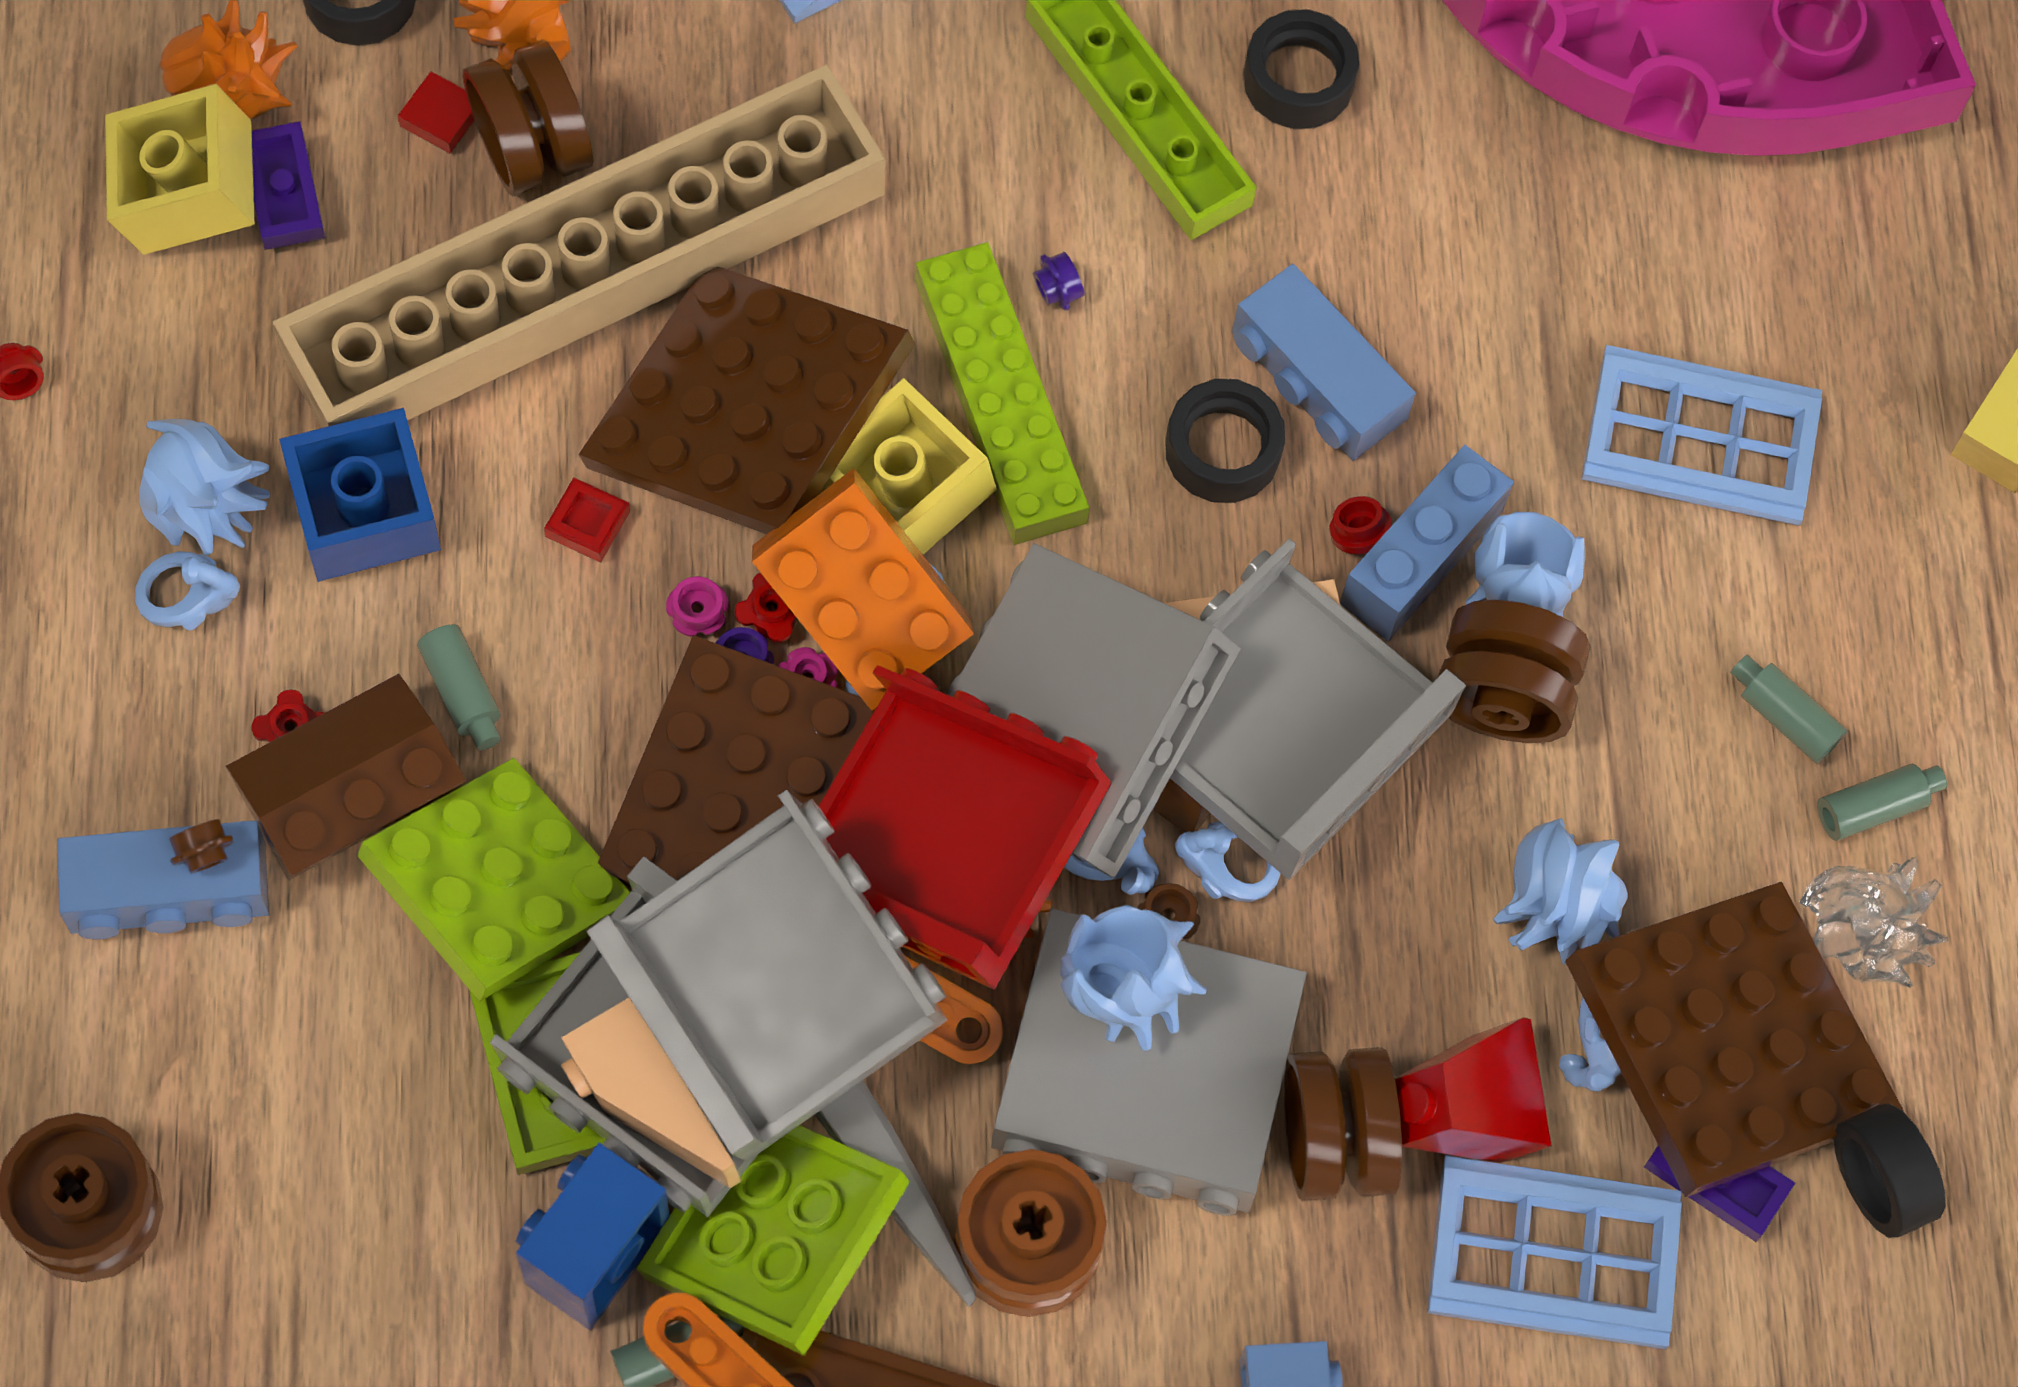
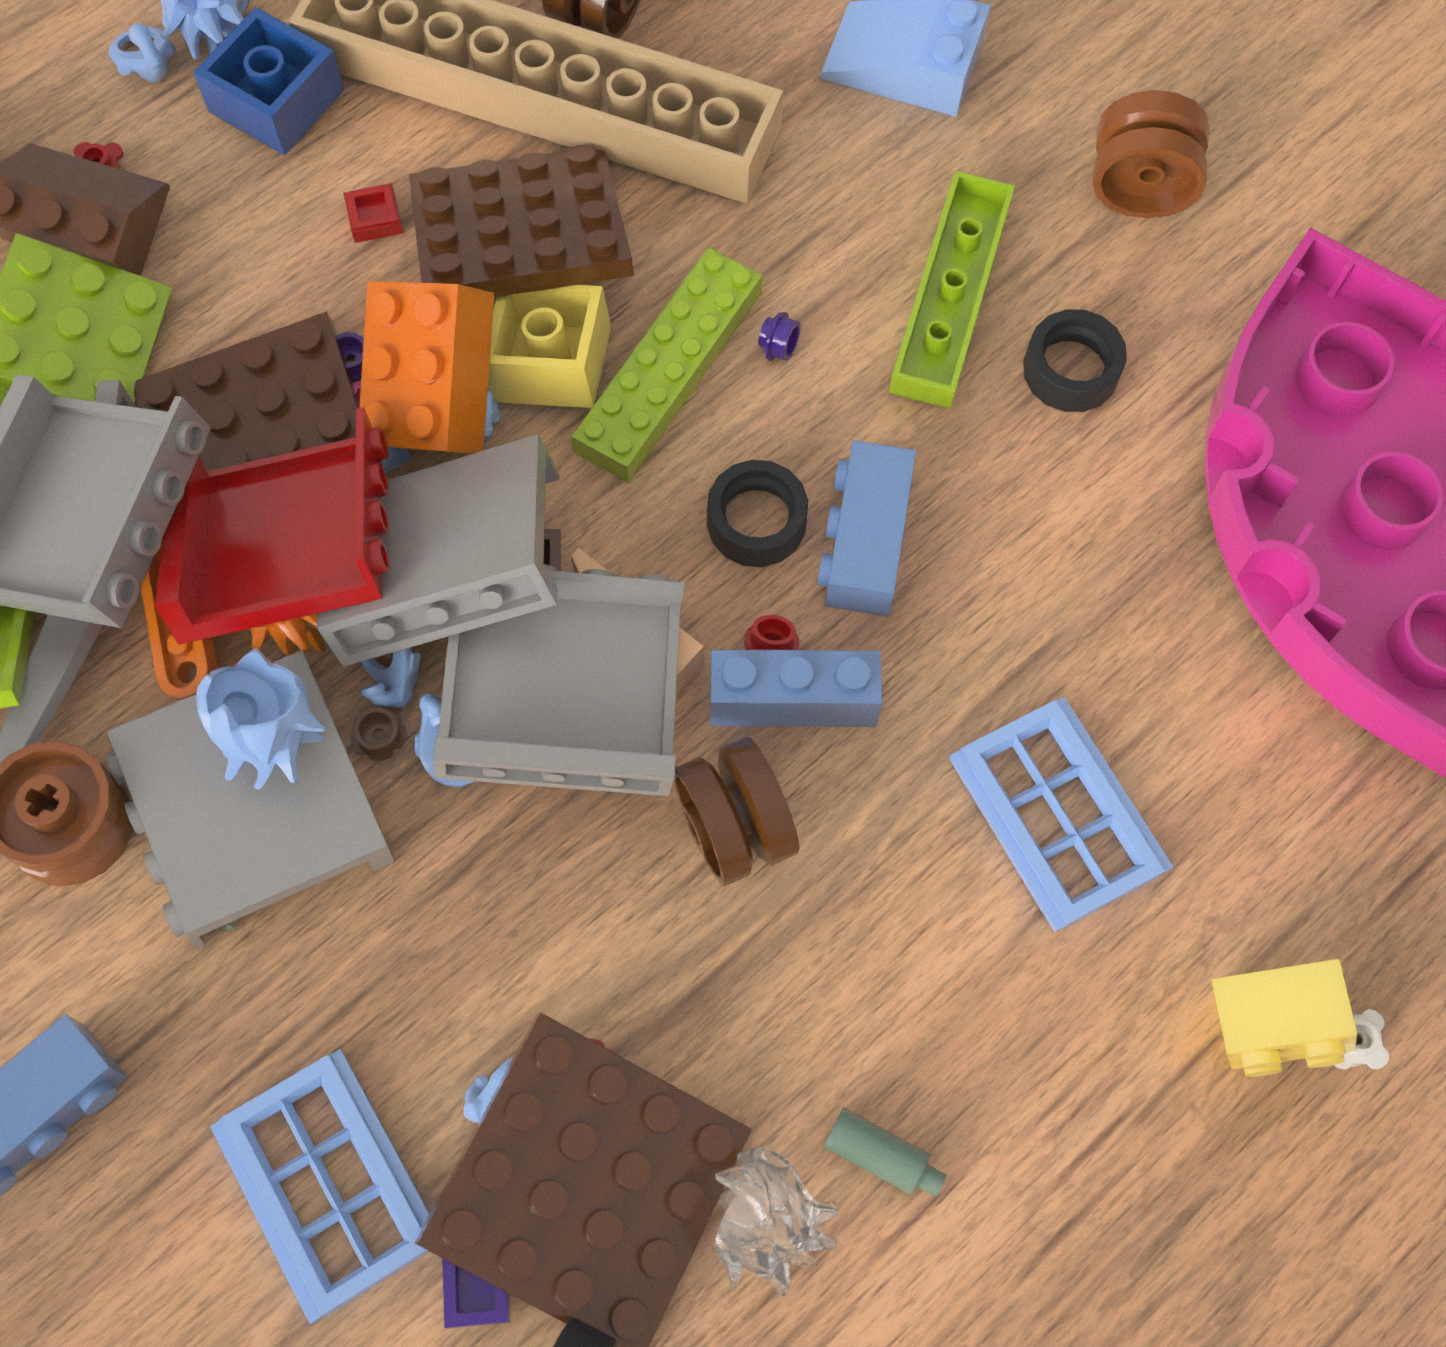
camera: 55 degrees right, 0 degrees up
(461, 684) = (198, 226): sand green cylinder -> none
(697, 591) = (351, 303): dark pink plate -> none
(1342, 1124) = (284, 953): reddish brown wheel -> none
(1477, 1097) = (380, 1027): red slope -> none
(1529, 562) = (826, 763): light blue hair -> none
(1564, 890) = (598, 974): light blue hair -> none
(1789, 708) = (896, 1032): sand green cylinder -> none

